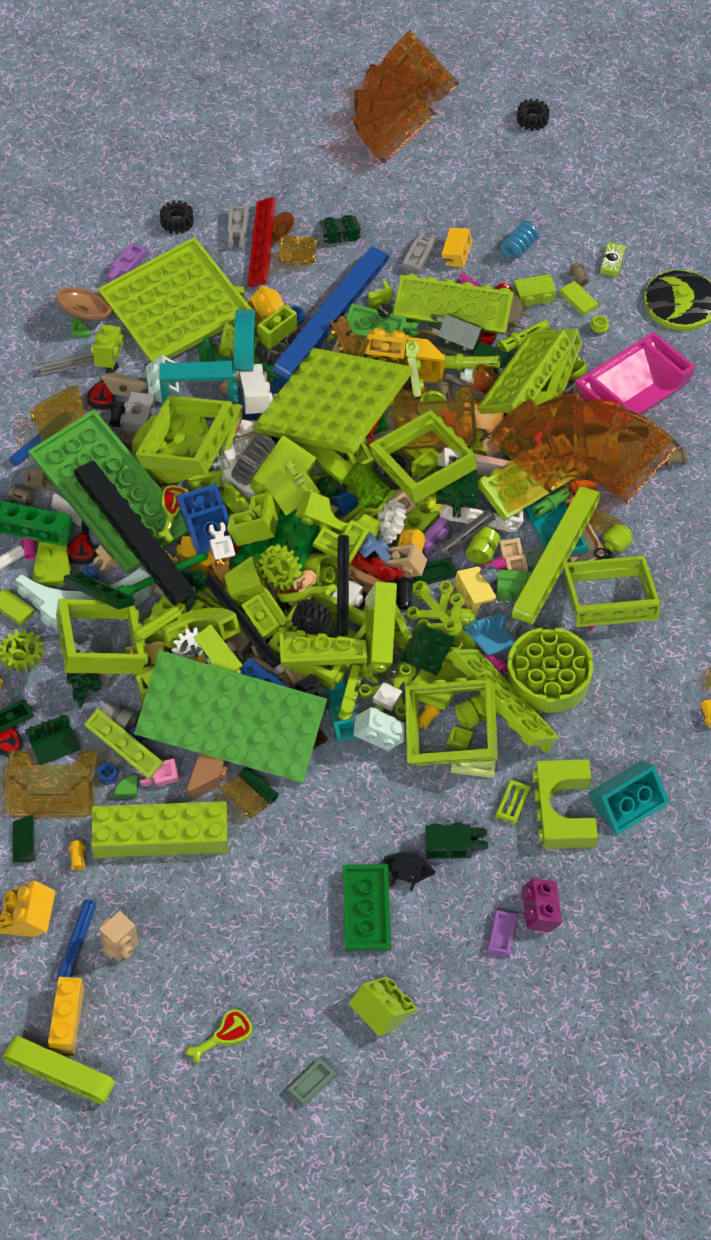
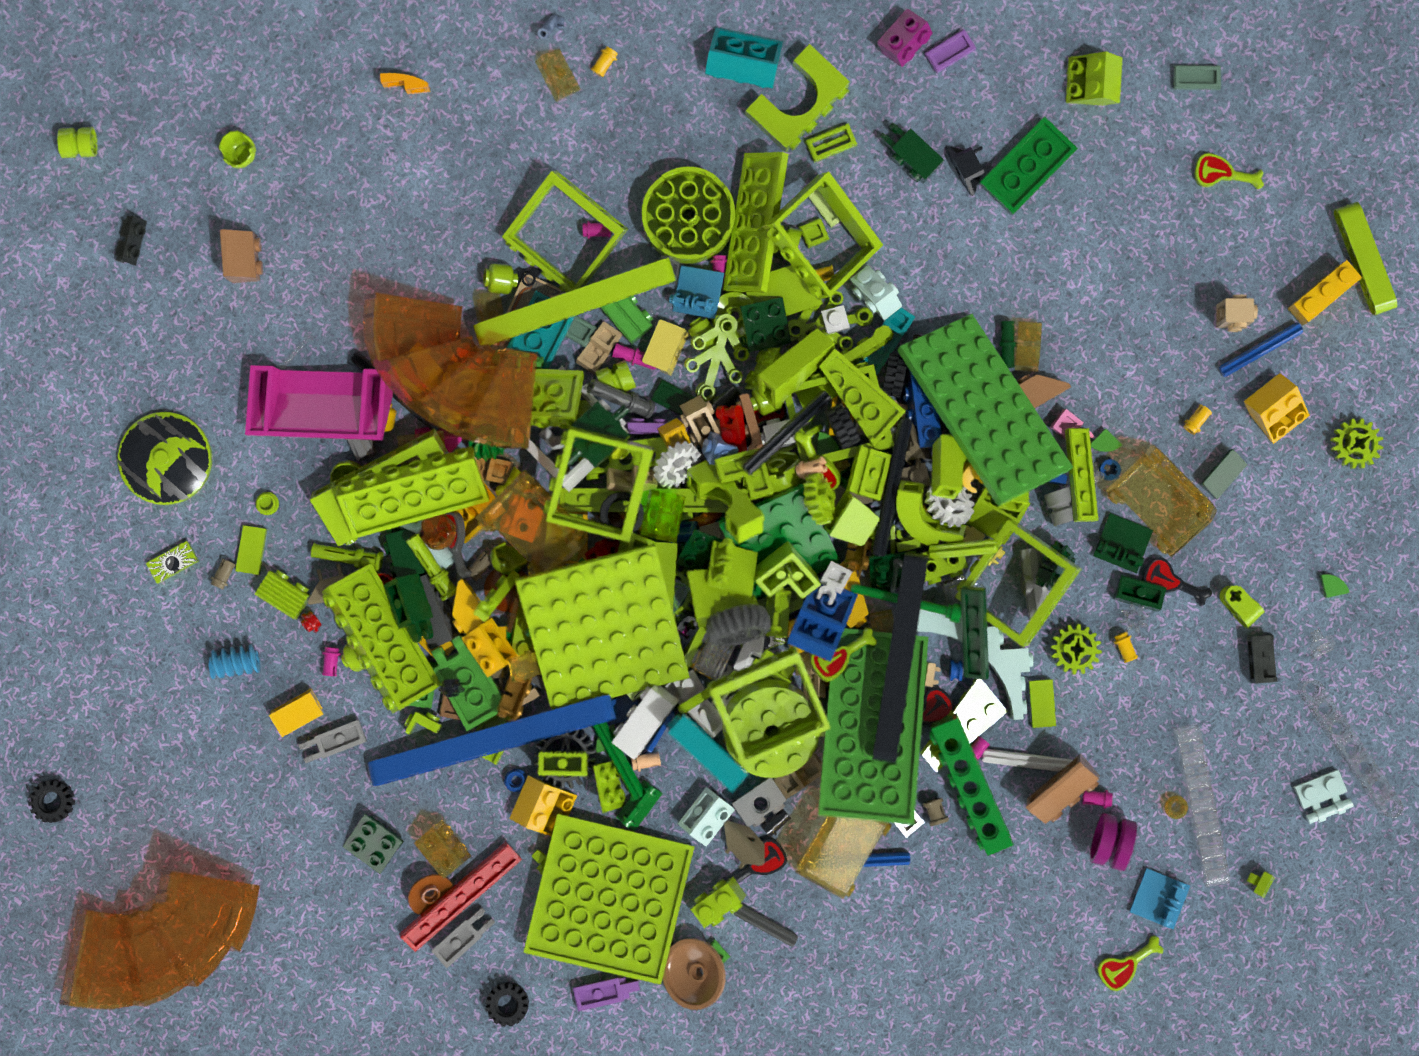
camera: 130 degrees left, 30 degrees up
(159, 829) = (1119, 377): lime brick -> none
(244, 340) = (603, 779): teal slope -> none
(489, 573) = (643, 345): sand blue hinge -> none
(677, 457) = (357, 304): dark tan bush -> none

